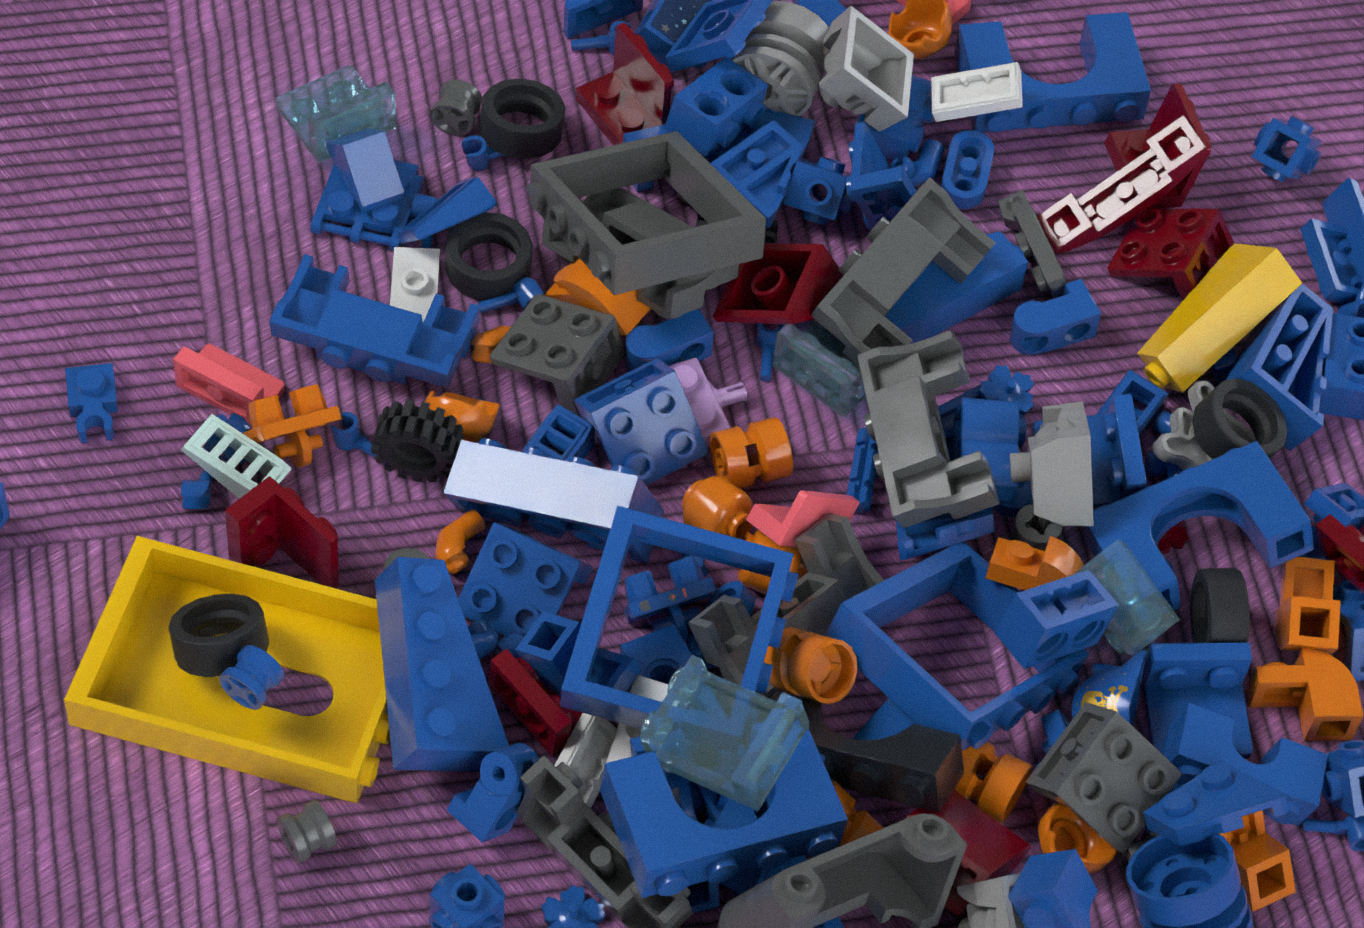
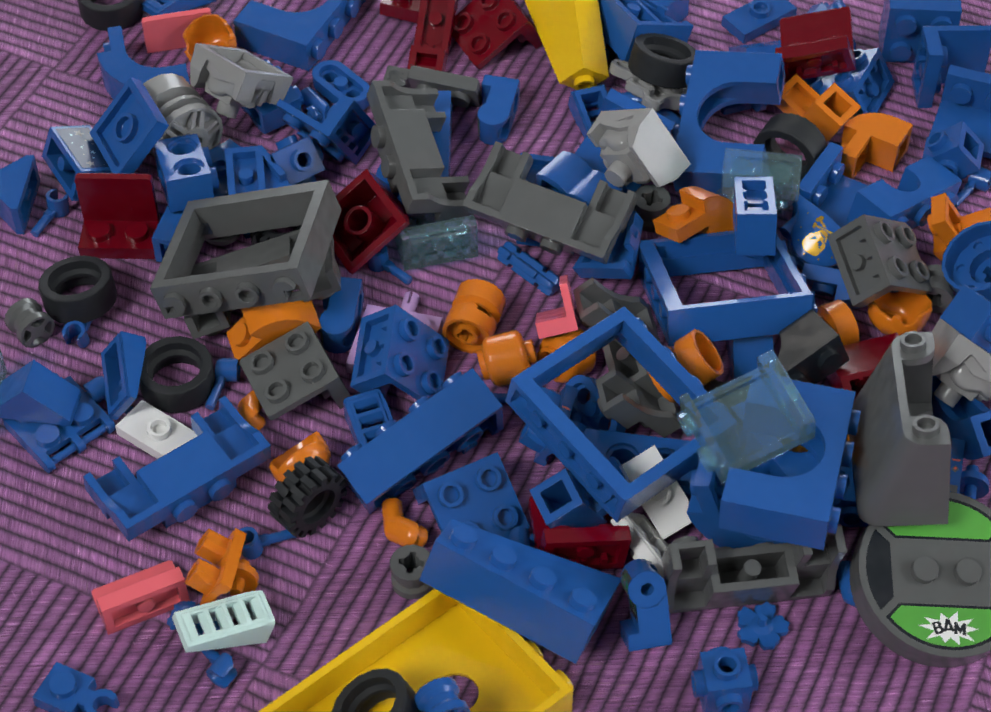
camera: 50 degrees left, 5 degrees down
(277, 518) = (327, 615): dark red bracket -> none
(976, 92) = (301, 37): white plate -> none
(1004, 388) = (539, 154): blue plant -> none
(1212, 805) = (946, 216): blue wing -> none

